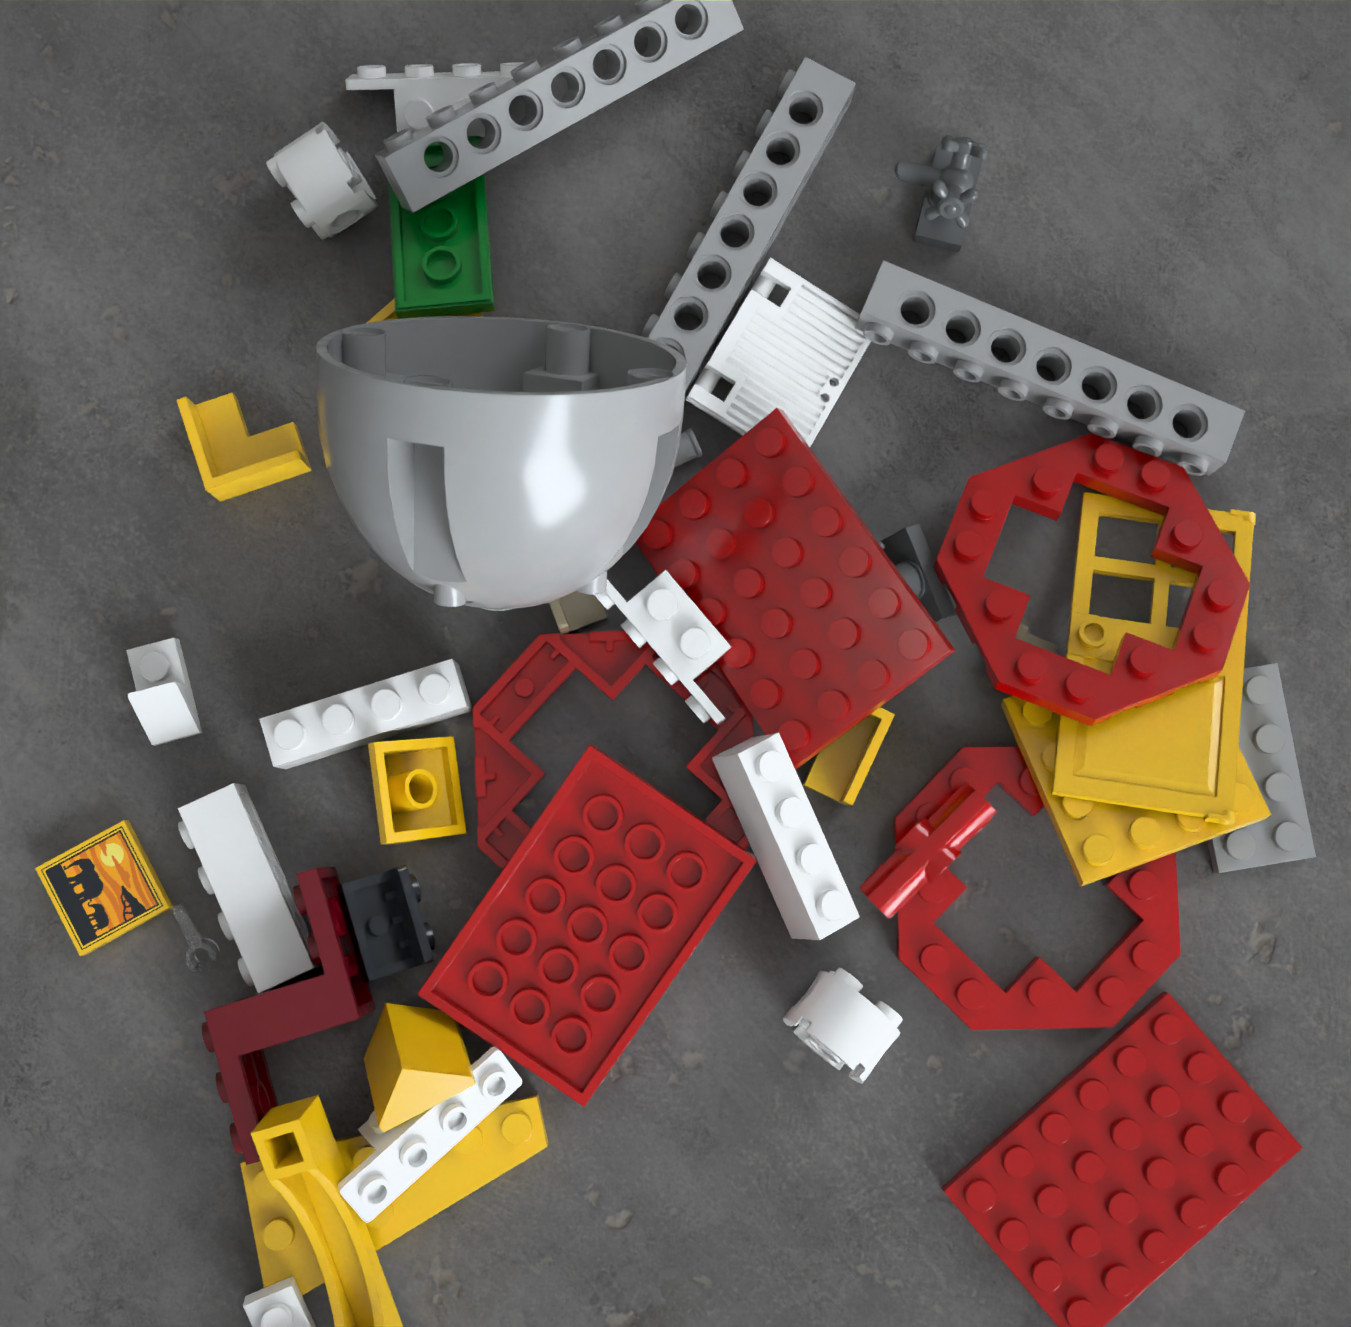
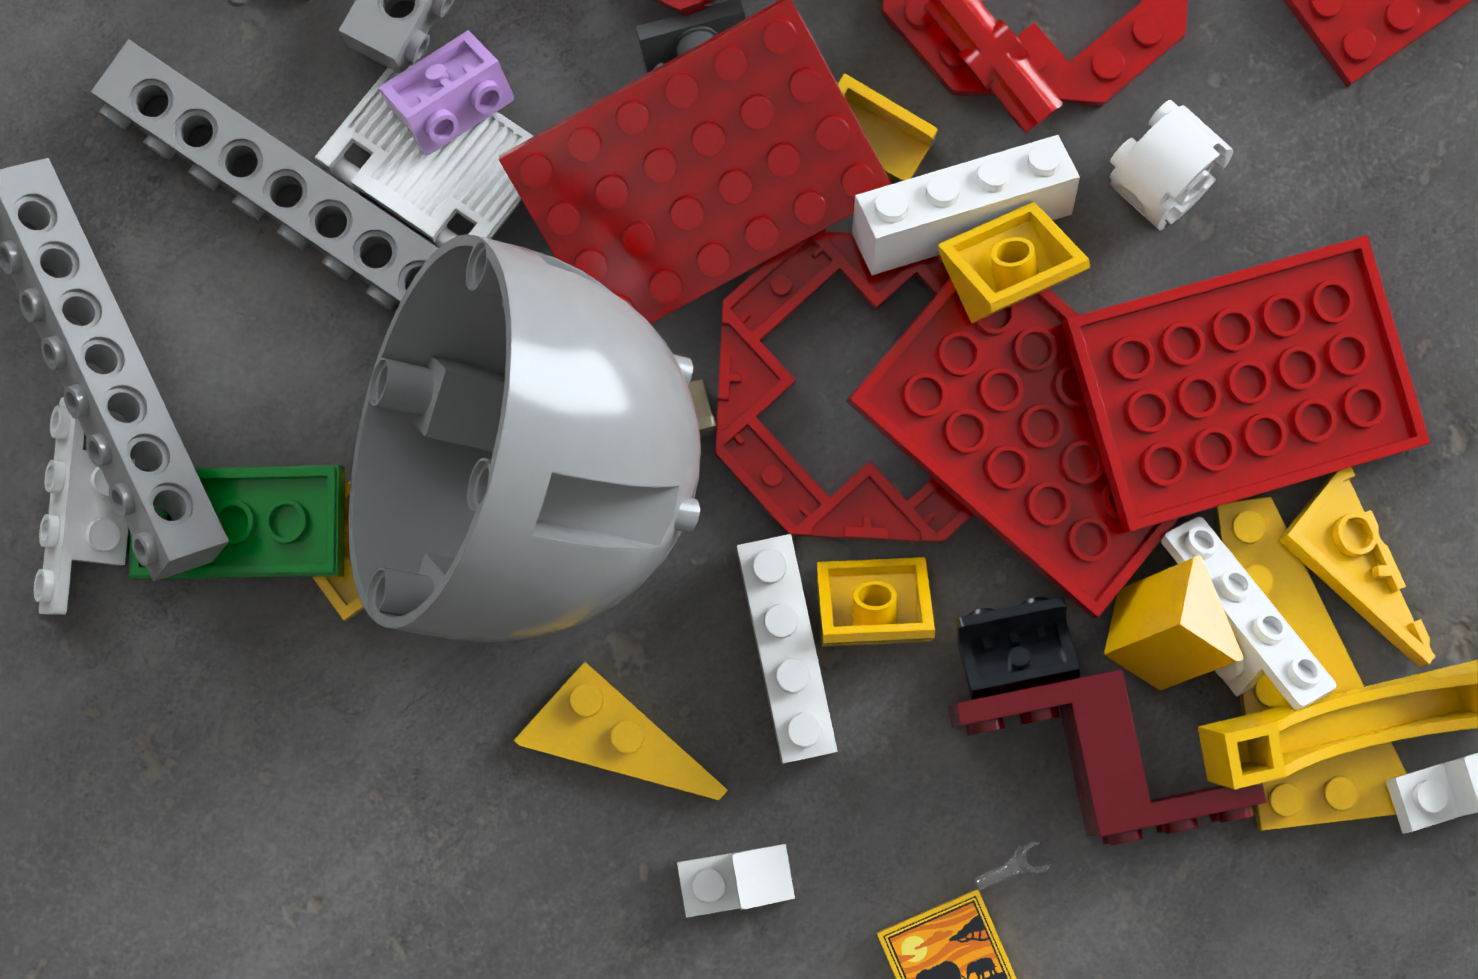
camera: 85 degrees left, 0 degrees up
(231, 458) = (480, 779): yellow panel -> none
(248, 886) = (966, 796): white brick -> none
(286, 566) = (603, 729): none -> yellow wing
(324, 182) = (172, 646): white brick -> none
(501, 1222) = (1346, 553): none -> yellow wing
(645, 1114) = (1245, 383): none -> red plate
(677, 633) = (737, 294): white bracket -> none
(731, 881) = (1010, 260): none -> yellow slope
(839, 364) = (448, 92): none -> lavender bracket

